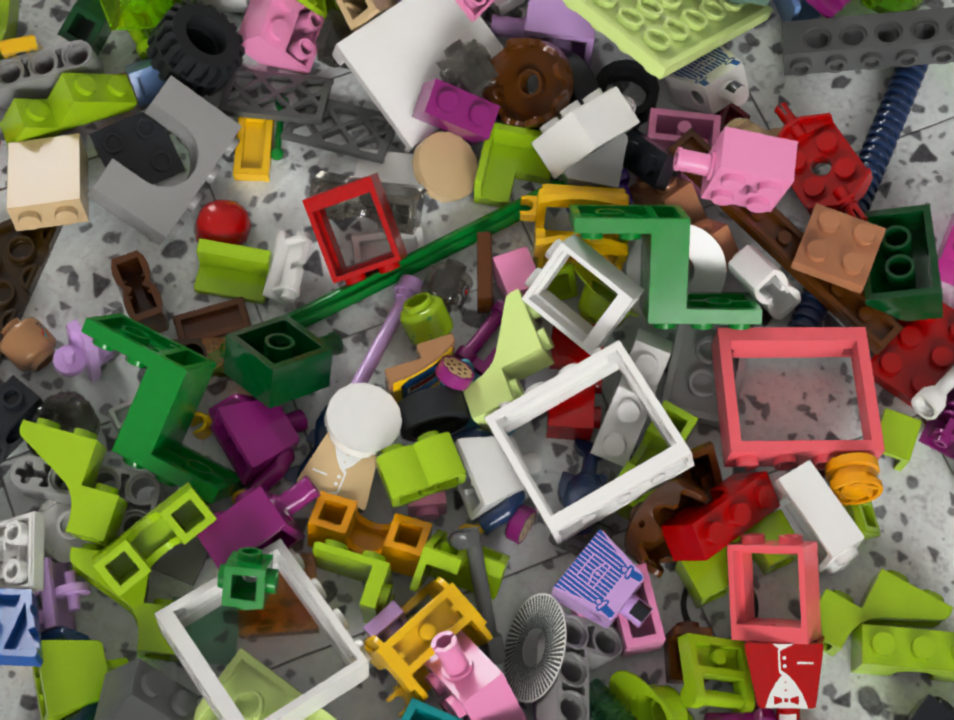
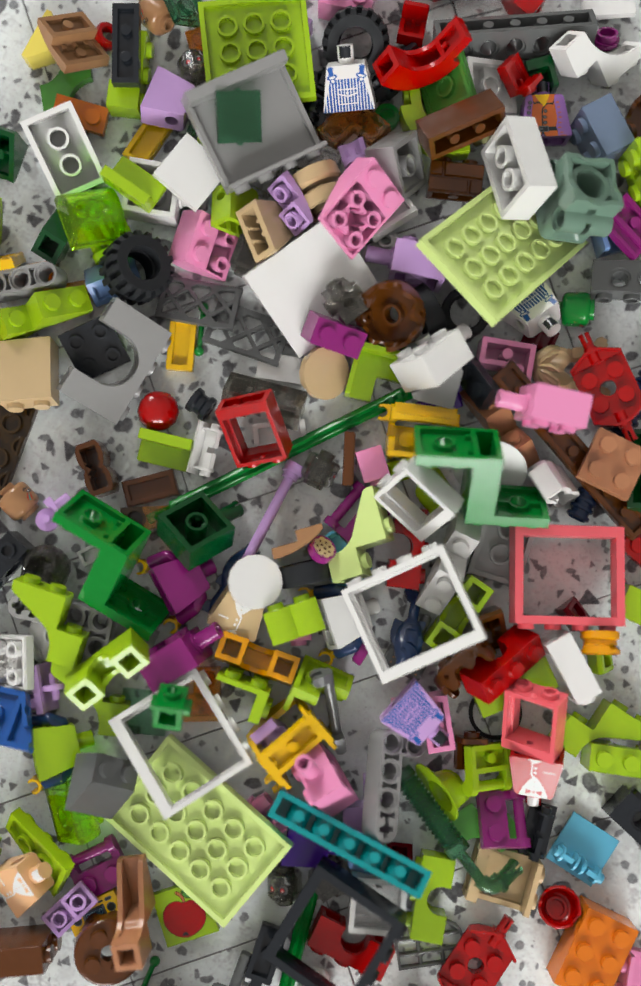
camera: 10 degrees right, 20 degrees up
(281, 213) = (201, 404): none -> black wheel
(425, 318) = (304, 498): lime head -> none
(533, 682) = (367, 772): sticker -> none
(769, 83) = (576, 309): none -> green head

